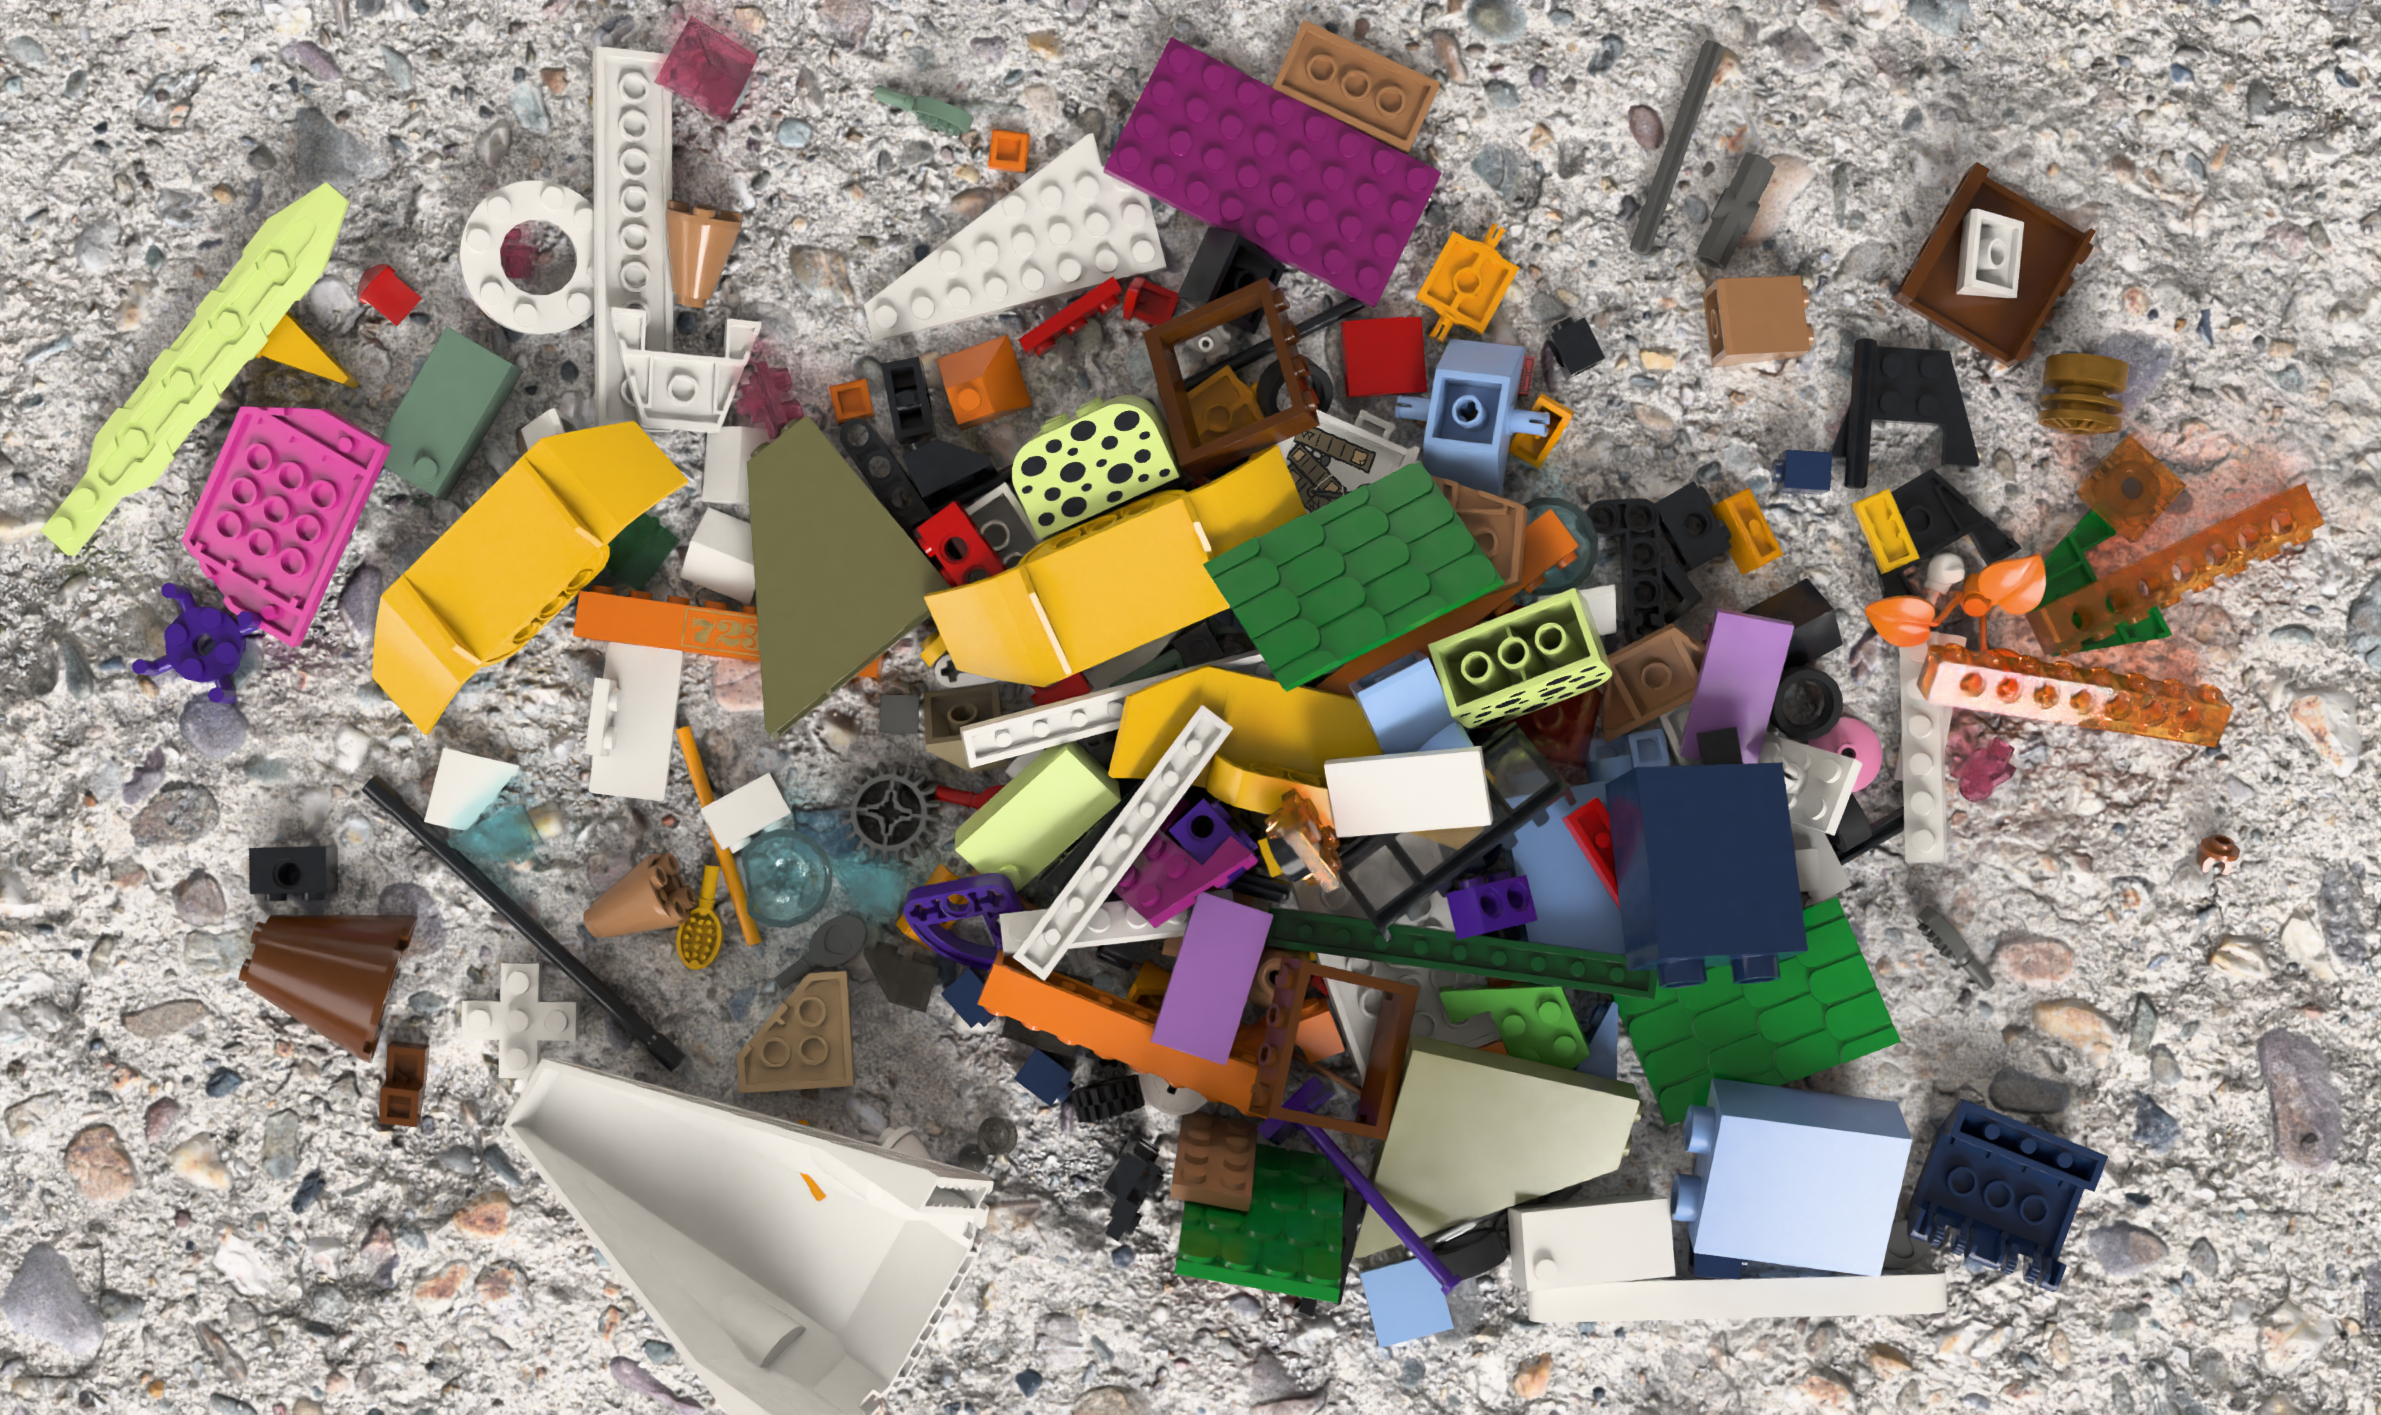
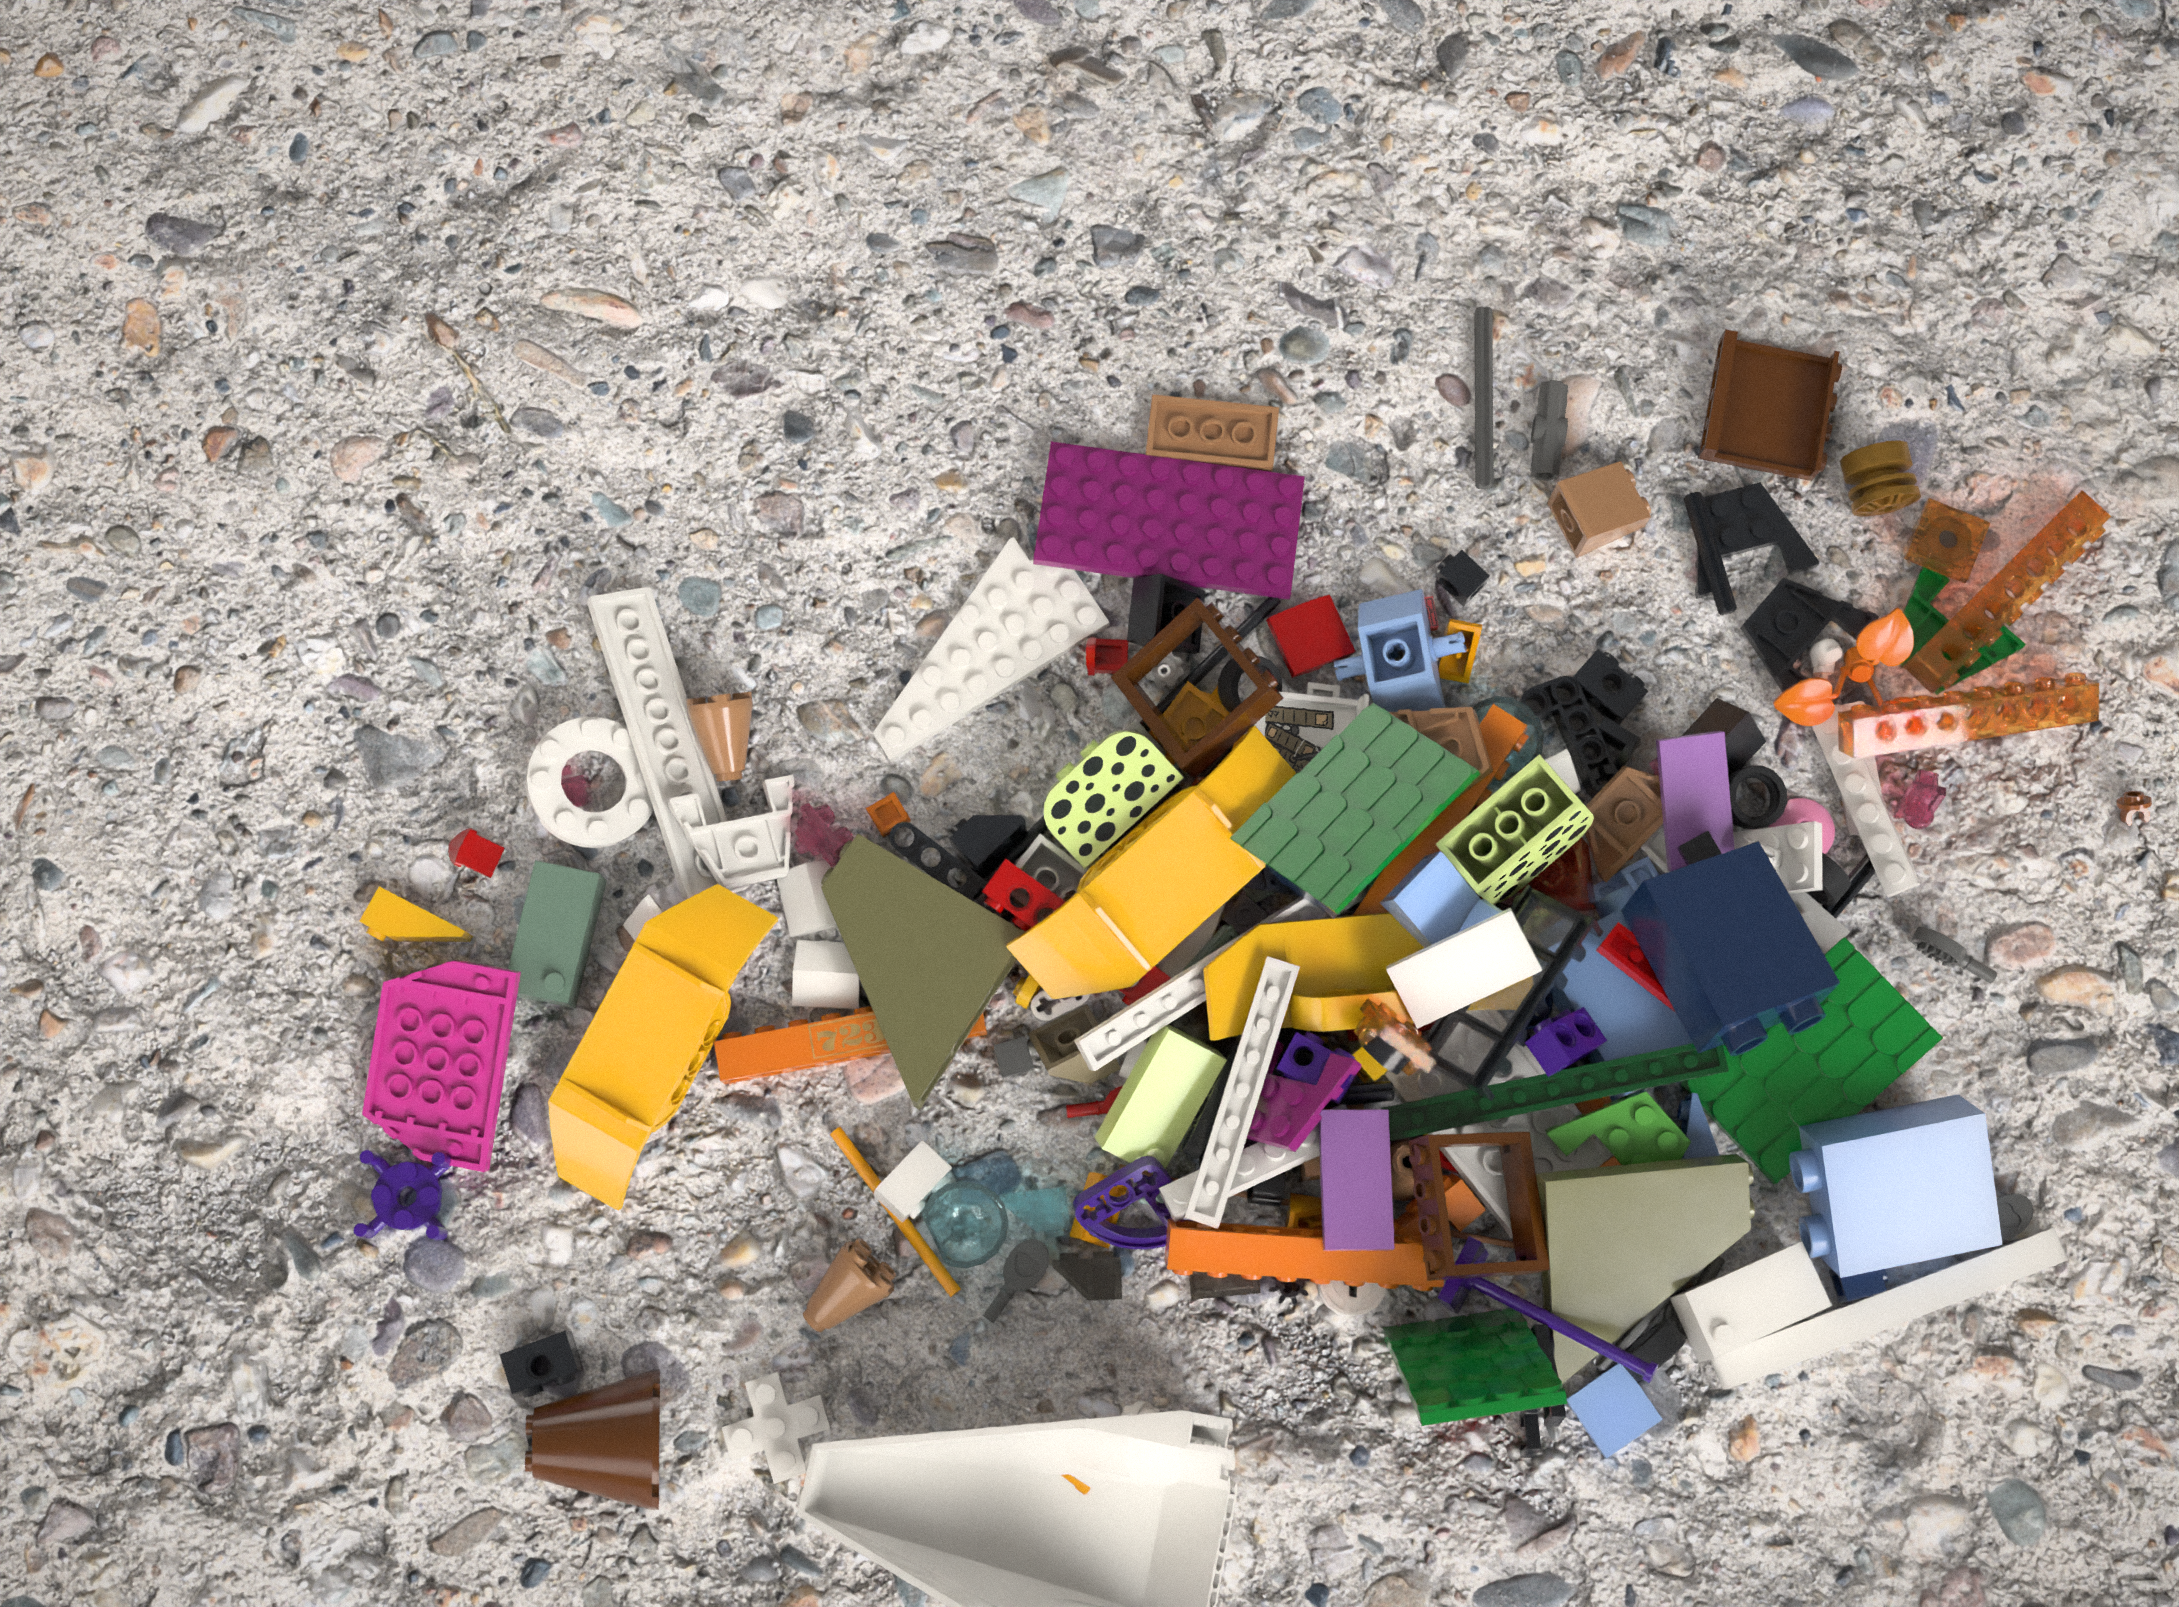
camera: 20 degrees left, 10 degrees down
(202, 362) = (337, 960): yellowish green plate -> none
(405, 1084) = (693, 1517): reddish brown slope -> none
(466, 787) = (668, 1241): white slope -> none
(502, 837) = (711, 1274): clear light blue slope -> none
(634, 721) = (793, 1138): white bracket -> none
(640, 550) = (753, 995): clear green piece -> none
(654, 1042) = (611, 1278): black piece -> none
(703, 935) = (909, 1299): yellow piece -> none
(706, 69) = (683, 589): clear pink slope -> none
(804, 1040) = (1024, 1361): tan plate -> none
(888, 830) = (1061, 1135): dark grey gear -> none
(909, 400) = (936, 795): black brick -> none
(928, 110) = (875, 561): sand green piece -> none
(964, 996) = (1153, 1275): dark blue brick -> none
(975, 1156) = (1211, 1393): clear smoke plate -> none
(984, 383) = (992, 764): orange slope -> none
(1009, 151) = (950, 573): orange tile -> none
(1046, 1077) = (1242, 1320): dark blue brick -> none
(1072, 318) = (1047, 688): red plate -> none
(1108, 1098) = (1301, 1319): black tyre -> none
(1130, 1178) = (1348, 1374): black bracket -> none
(1215, 1161) = (1412, 1337): medium nougat plate -> none
(1467, 283) = (1356, 555): light orange plate -> none
(1752, 538) = (1659, 678): light orange slope -> none
(1802, 472) = (1681, 614): dark blue brick -> none
(1885, 531) = (1766, 637): yellow plate -> none
(1989, 255) = (1762, 397): white slope -> none
(2002, 1192) = (2073, 1141): dark blue slope -> none

